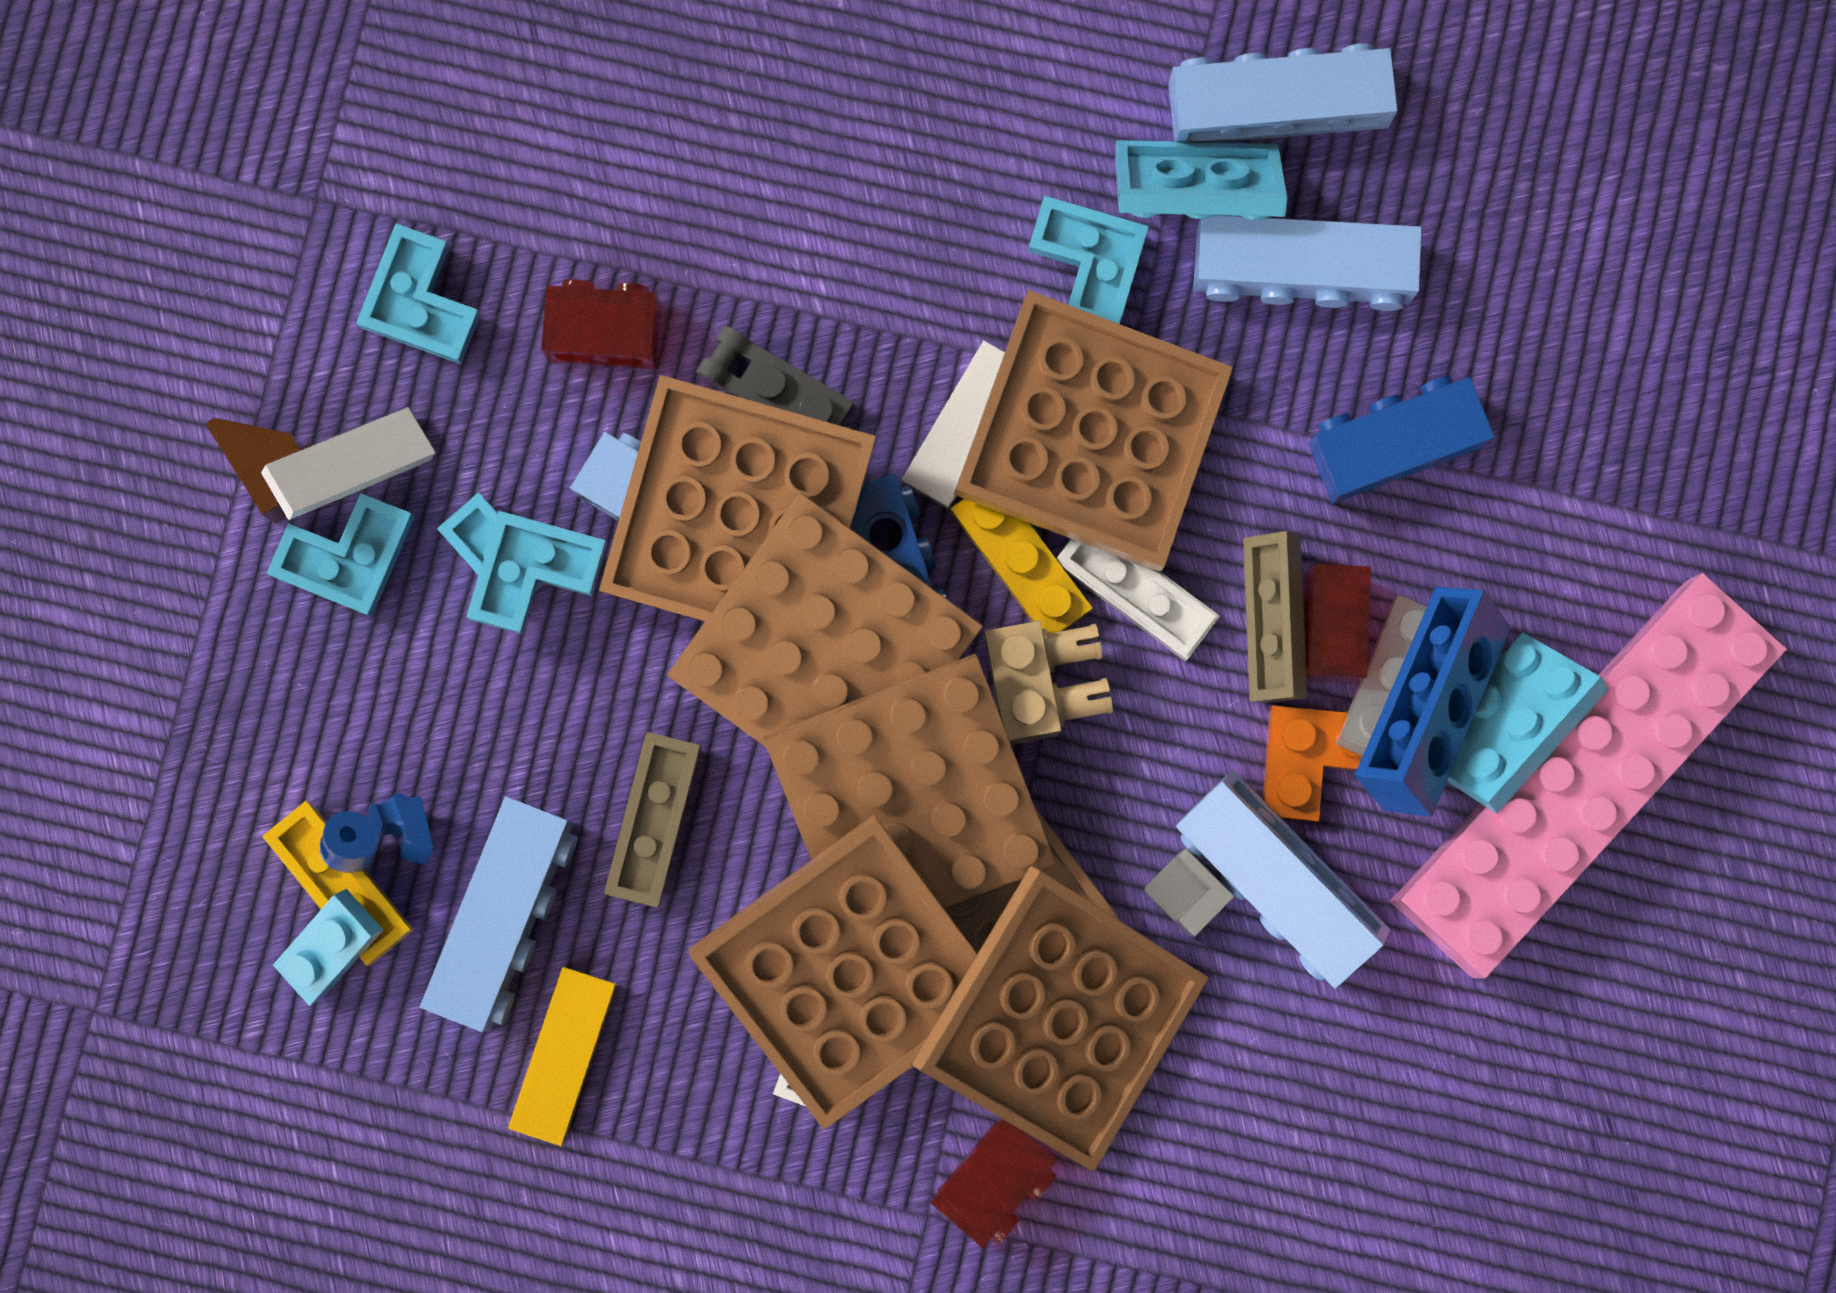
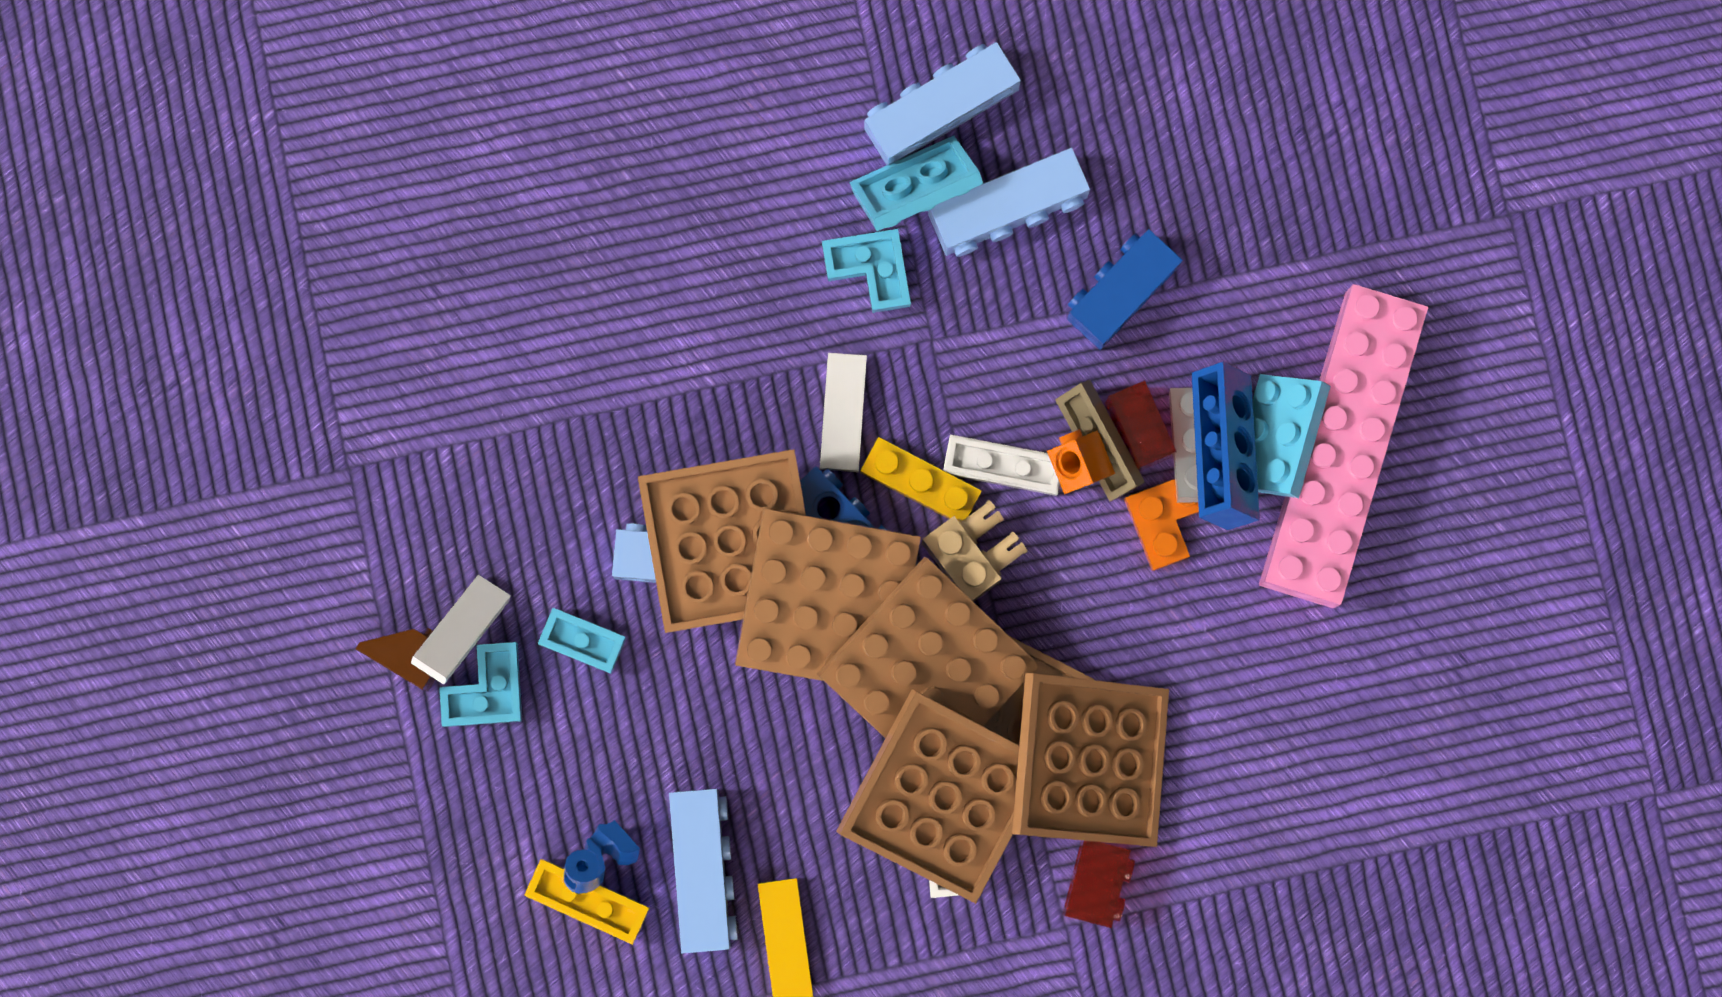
camera: 30 degrees left, 0 degrees up
(328, 947) = (602, 945): medium azure plate -> none
(403, 303) = (441, 509): medium azure plate -> none
(523, 555) = (604, 632): medium azure plate -> none
(601, 325) = (578, 461): clear red brick -> none
(653, 820) = (768, 762): dark tan plate -> none
(771, 380) = (705, 445): dark grey plate -> none
(1093, 431) = (927, 377): medium nougat plate -> none
(1188, 893) = (1130, 642): light grey panel -> none
(1237, 630) = (1080, 460): none -> orange brick
(1282, 880) = (1185, 605): light blue brick -> none

